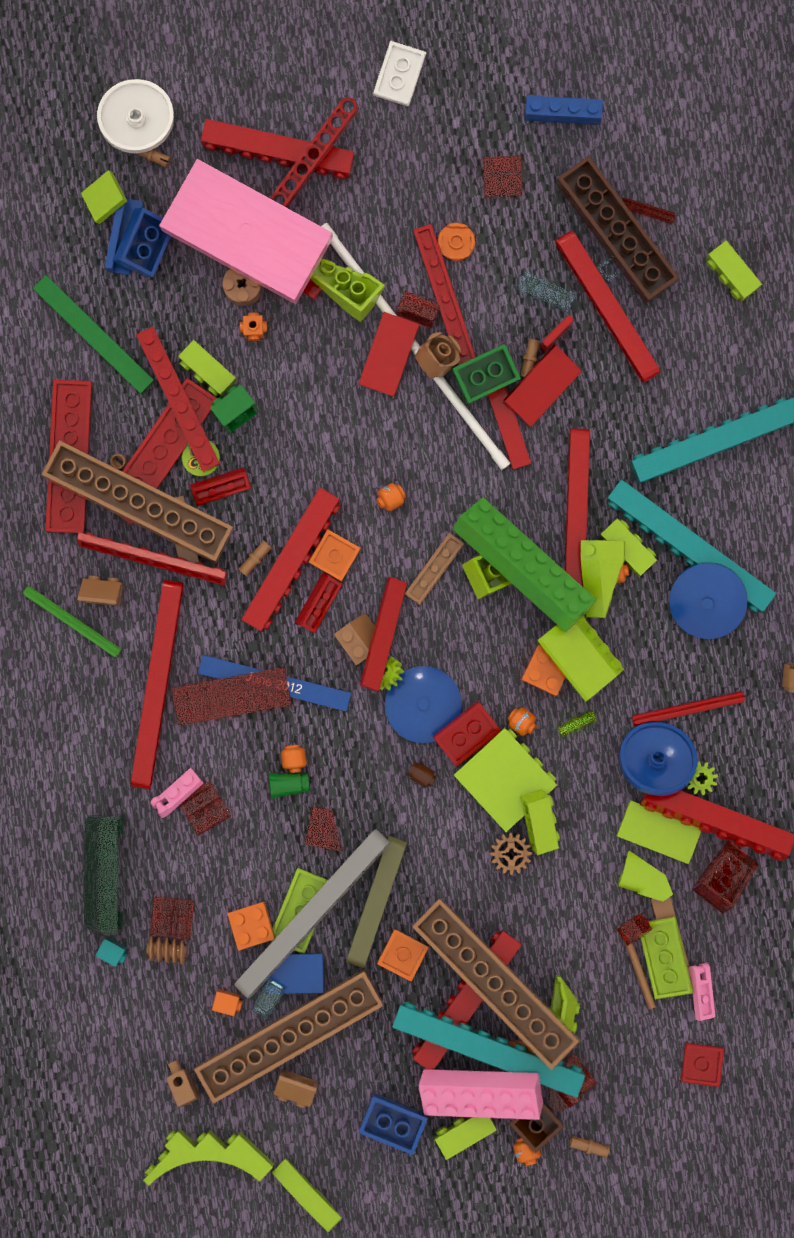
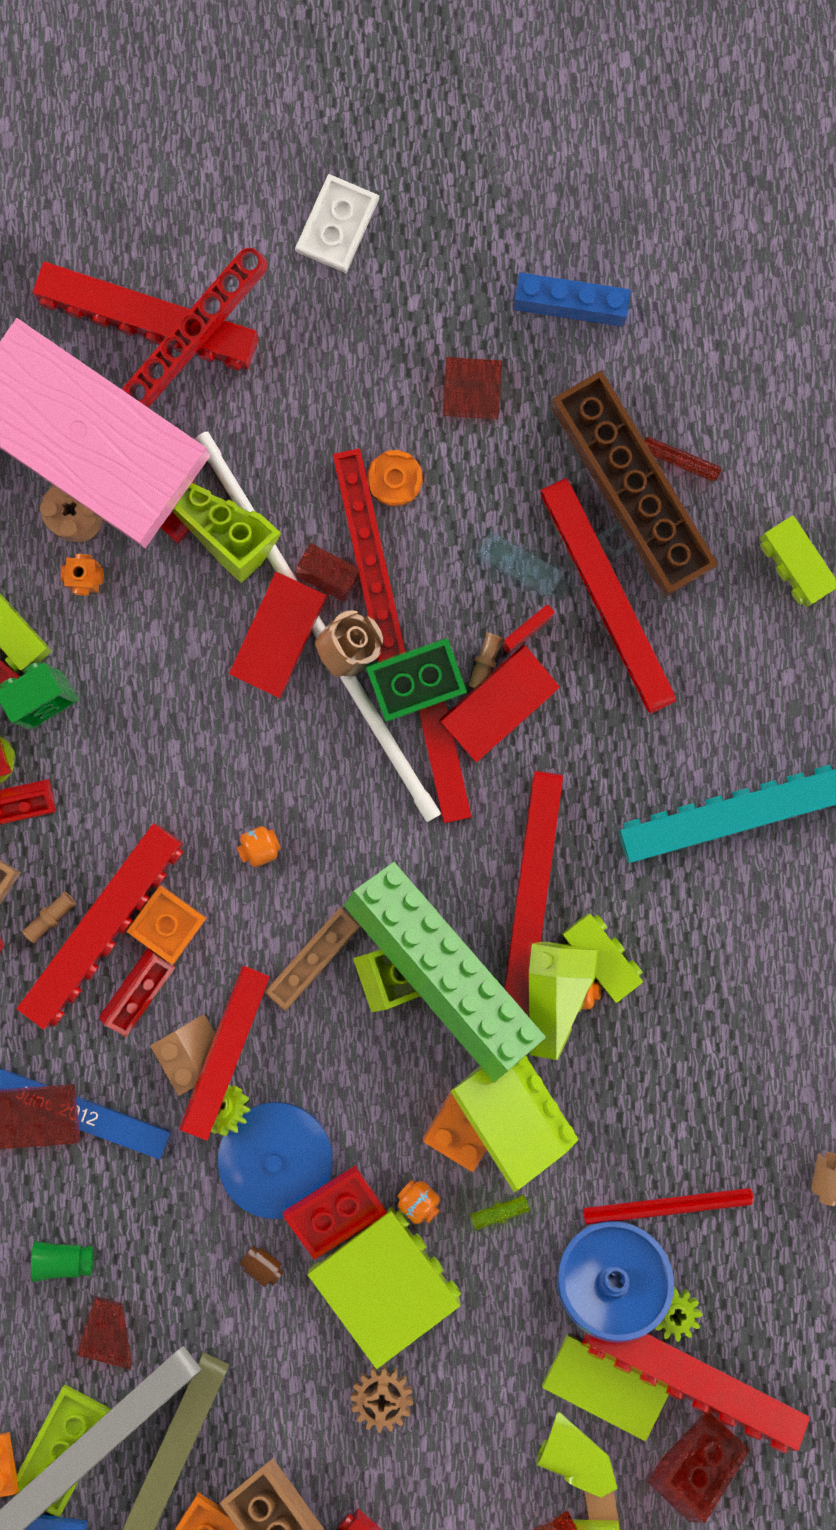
camera: 10 degrees right, 0 degrees up
(293, 758) = (73, 1222): orange head -> none
(540, 822) = (429, 1360): lime brick -> none
(683, 540) = (696, 965): teal brick -> none
(708, 600) = (714, 1049): blue dish -> none

